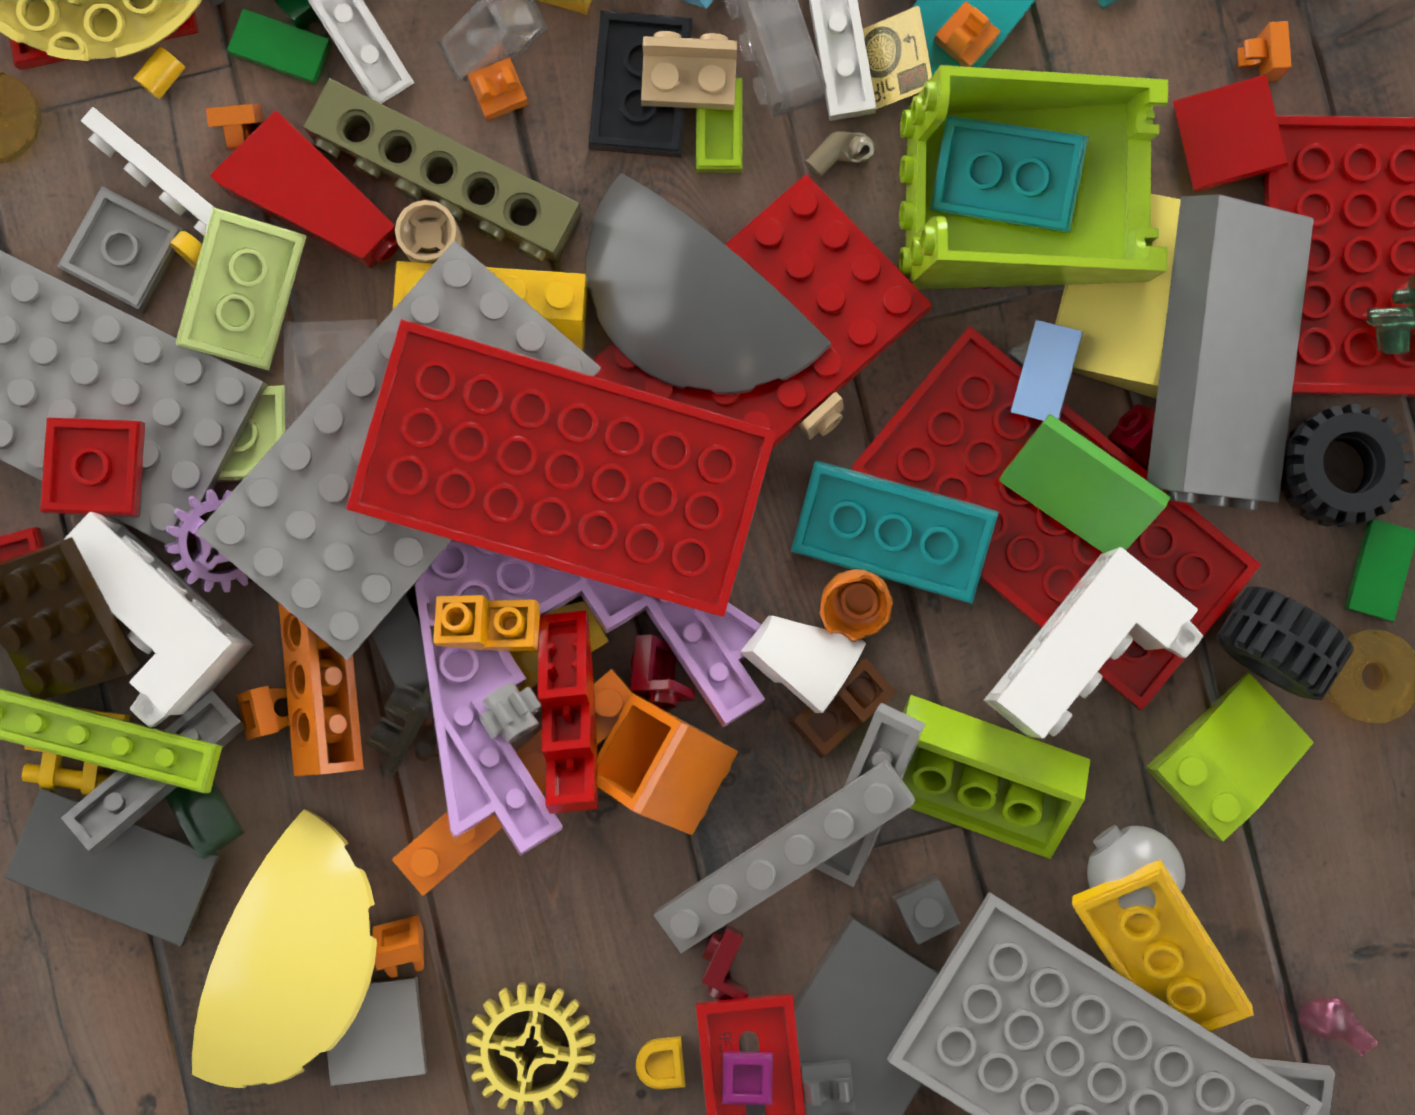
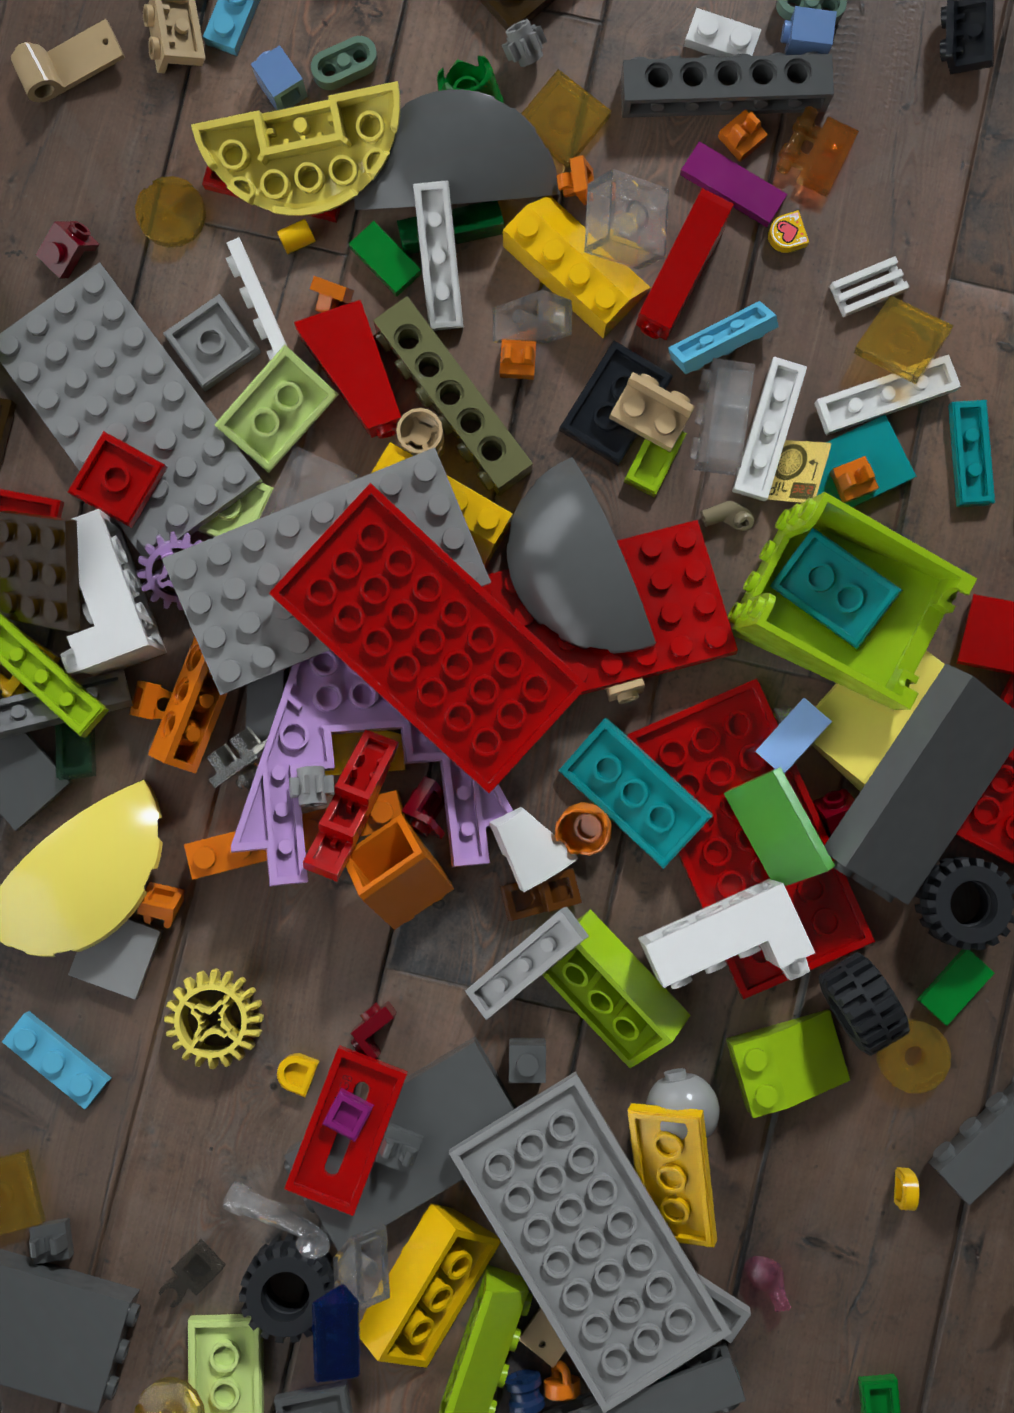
camera: 25 degrees right, 0 degrees up
(187, 247) = (255, 362): yellow tile -> none
(486, 623) = (326, 718): light orange slope -> none
(785, 856) = (450, 976): light grey plate -> none

